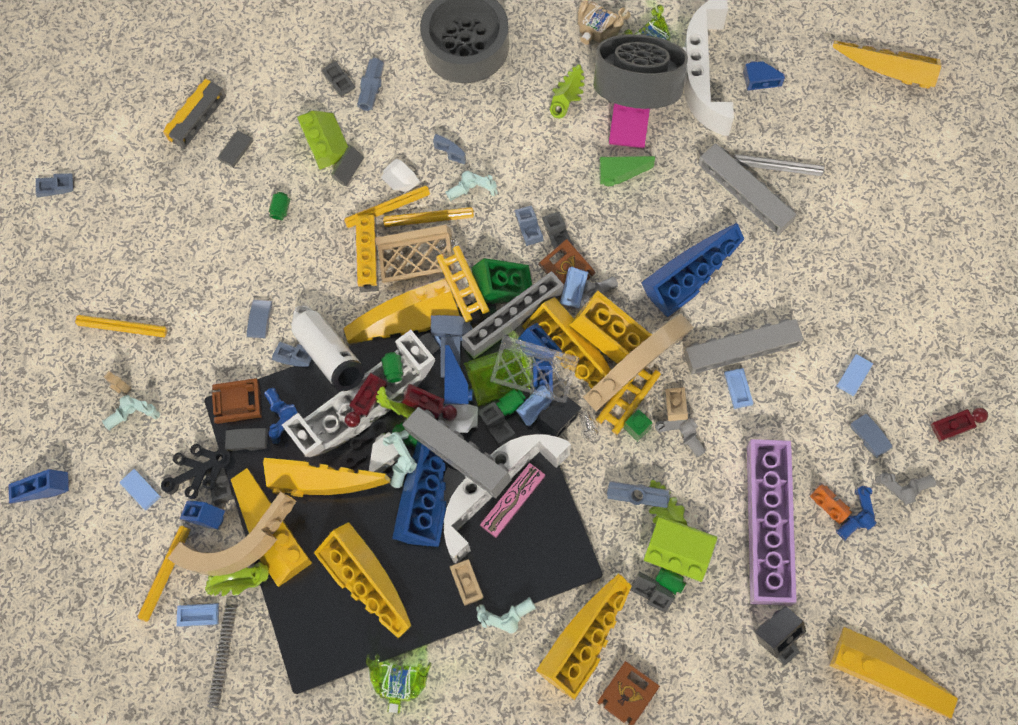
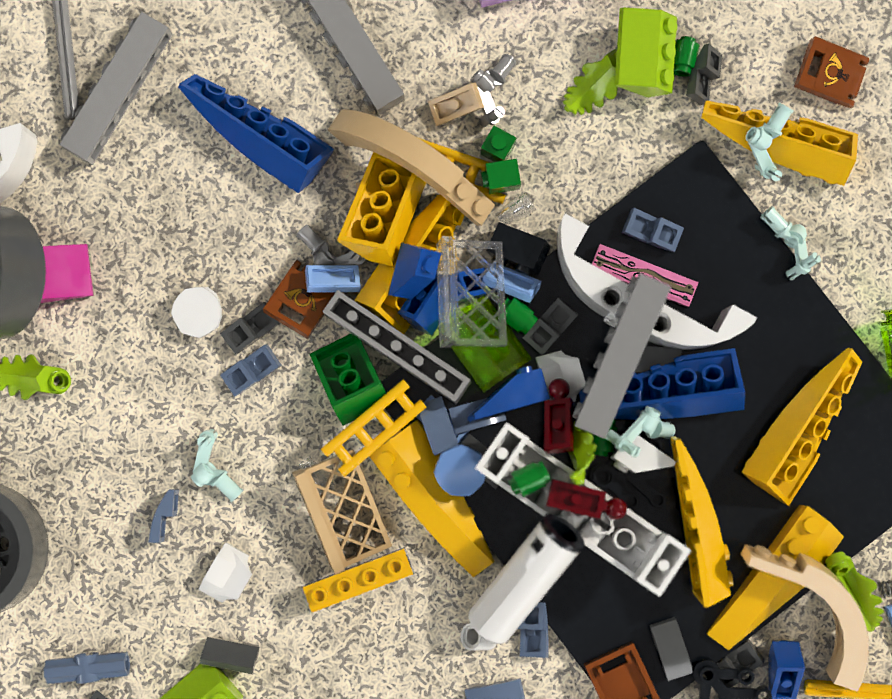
camera: 110 degrees left, 15 degrees up
(284, 411) = (617, 611): blue pin -> none
(389, 205) = (276, 577): yellow axle -> none
(416, 321) = (457, 471): none -> medium blue hat
(426, 217) = (276, 514): yellow axle -> none
(466, 582) = (768, 299): tan plate -> none
(544, 516) = (652, 230): none -> sand blue slope
(562, 335) = (413, 270): none -> blue slope
(578, 201) = (197, 311): none -> white hat
(588, 610) = (761, 138): none -> light aqua pin
(614, 419) = (501, 176): none -> green brick
(619, 169) = (133, 270): bright green slope -> none
(651, 495) = (589, 107): sand blue piece -> none
(738, 388) = (407, 35): light blue tile -> none

